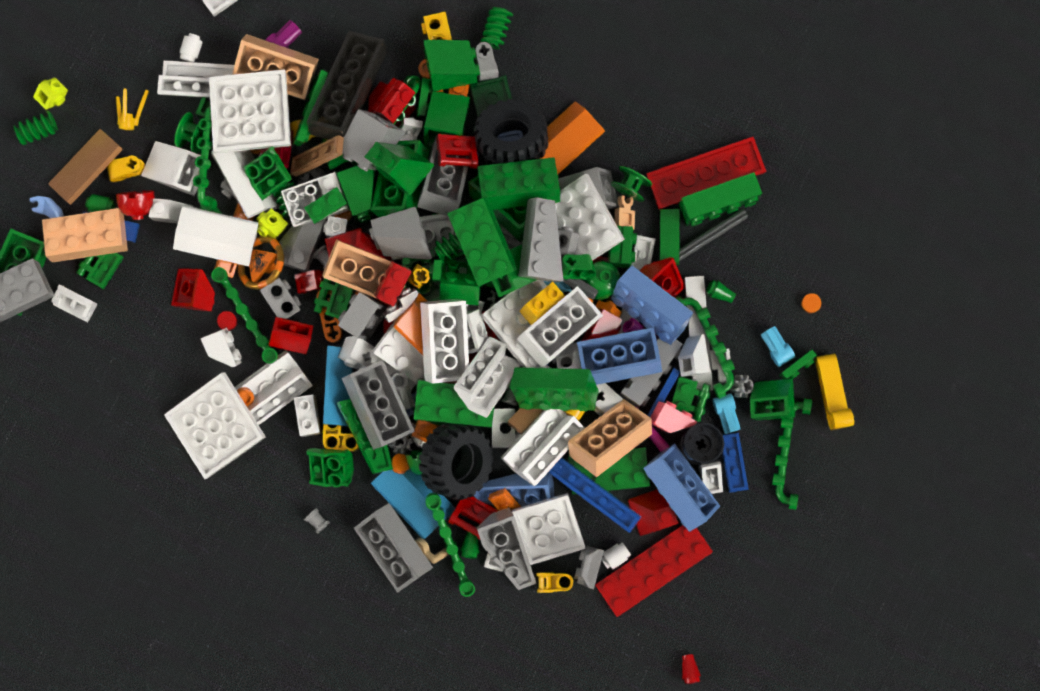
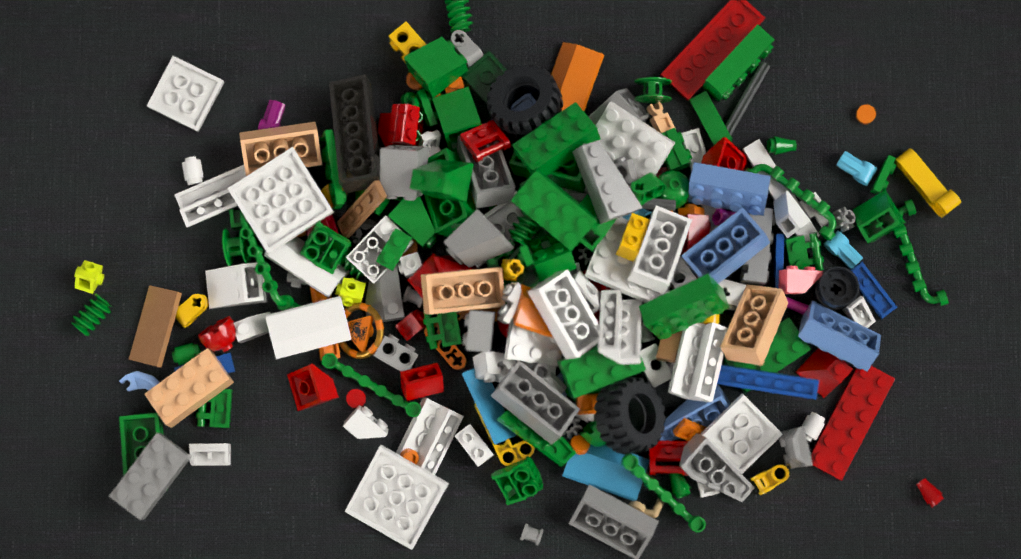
camera: 25 degrees left, 0 degrees up
(125, 119) = (169, 265): yellow plant -> none
(392, 283) = (493, 287): red brick -> none

